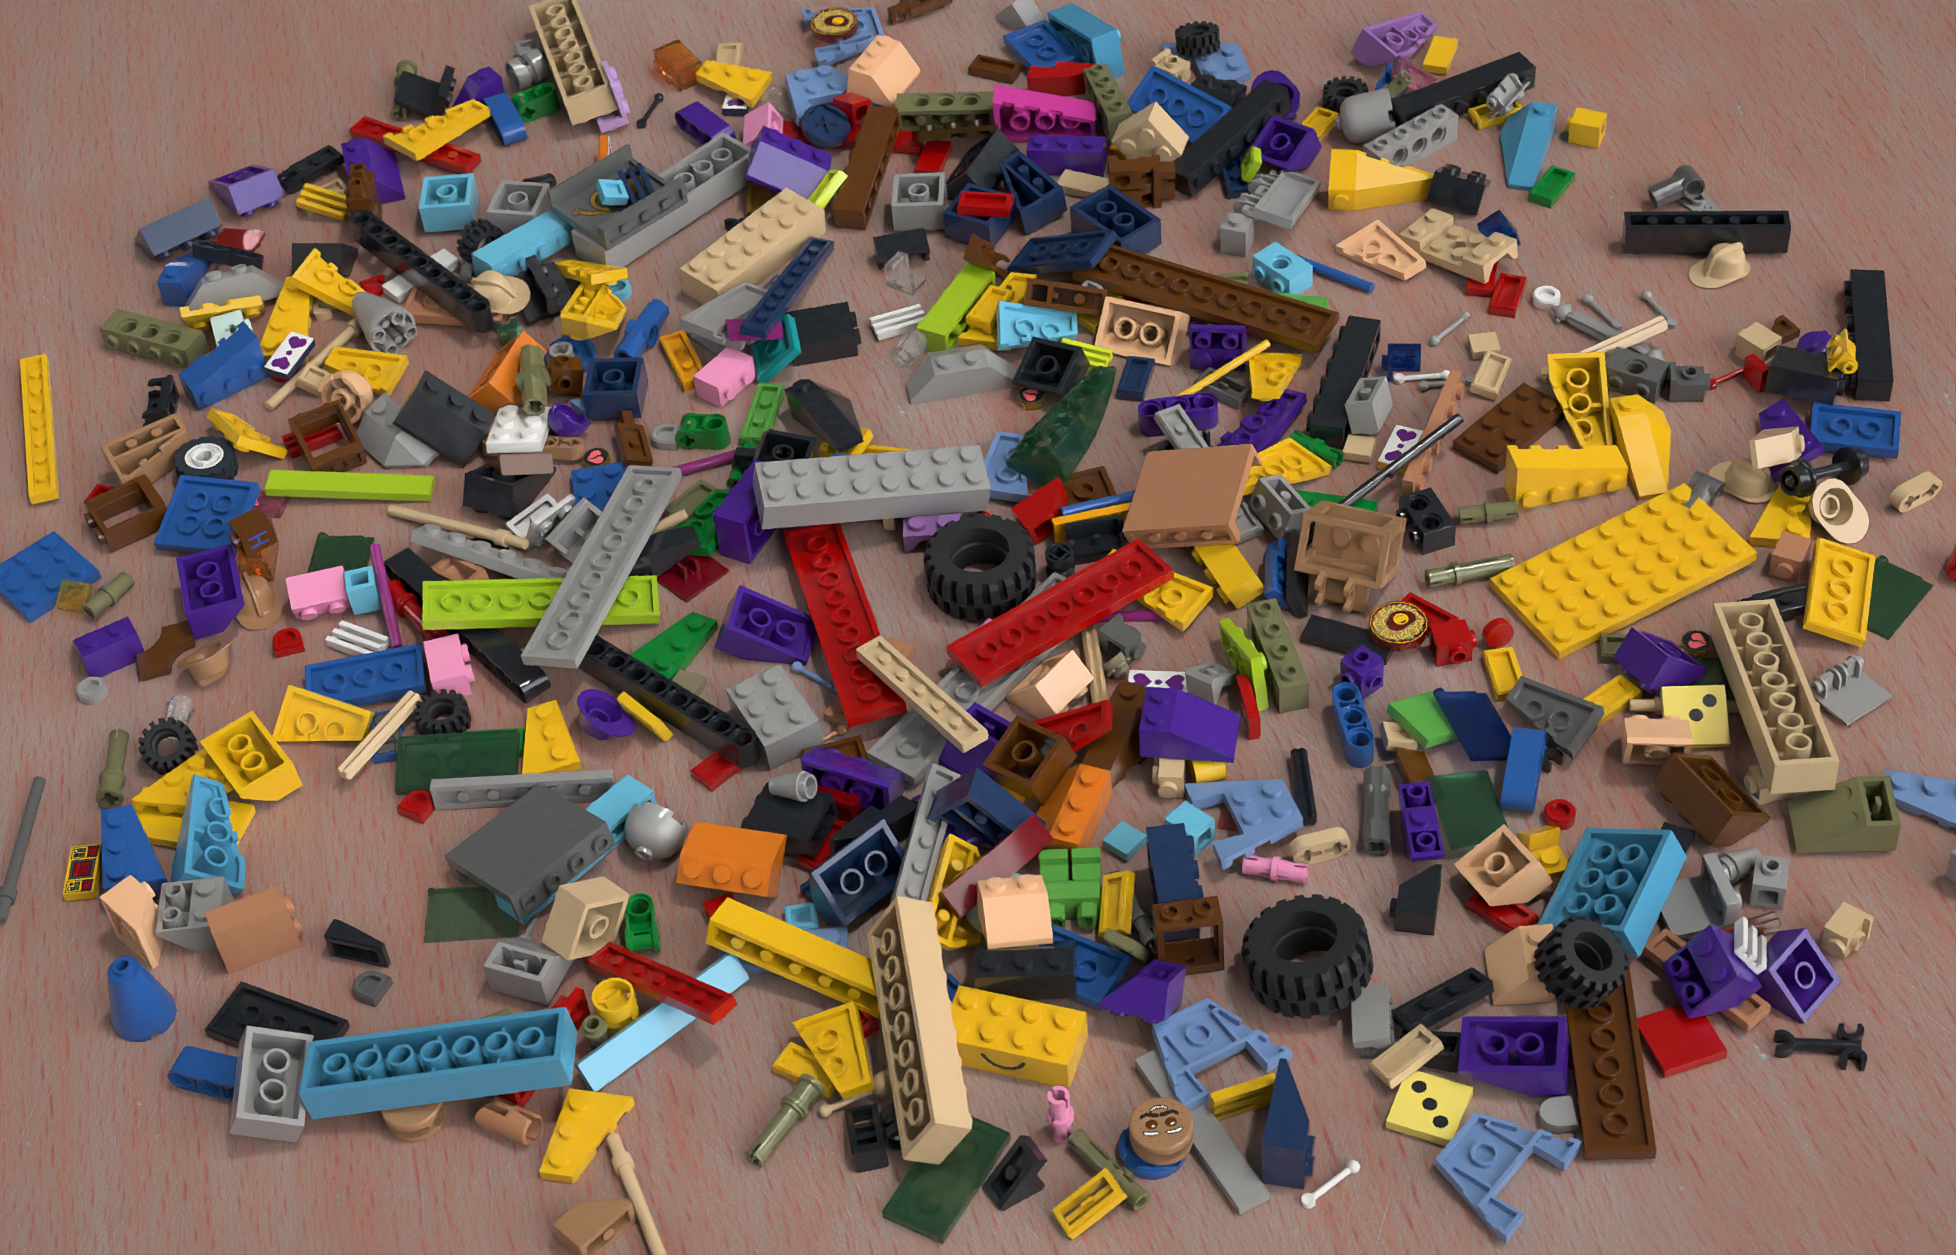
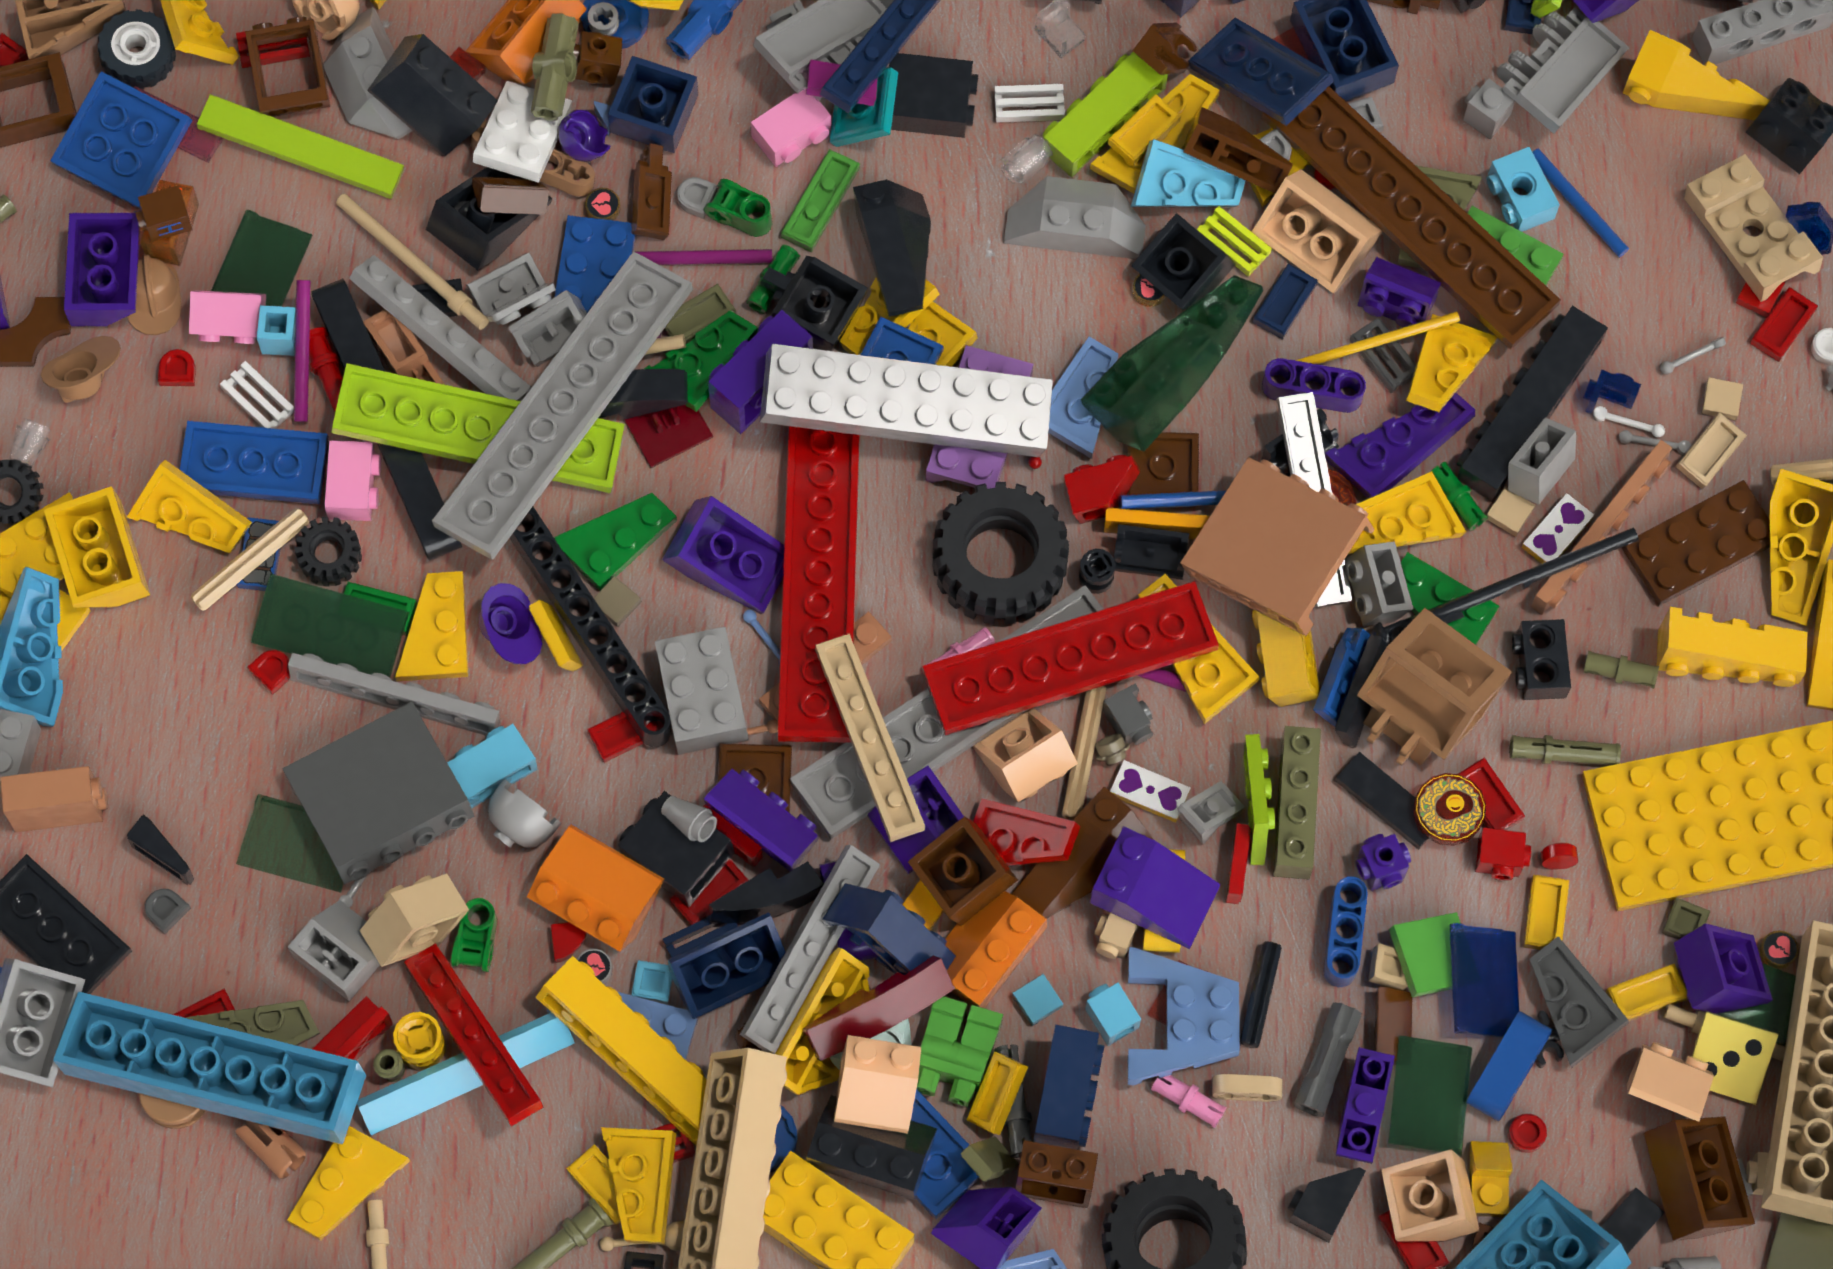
camera: 10 degrees right, 25 degrees up
(681, 358) = (750, 73): light orange tile -> none
(1382, 250) = (1659, 198): light nougat wing -> none

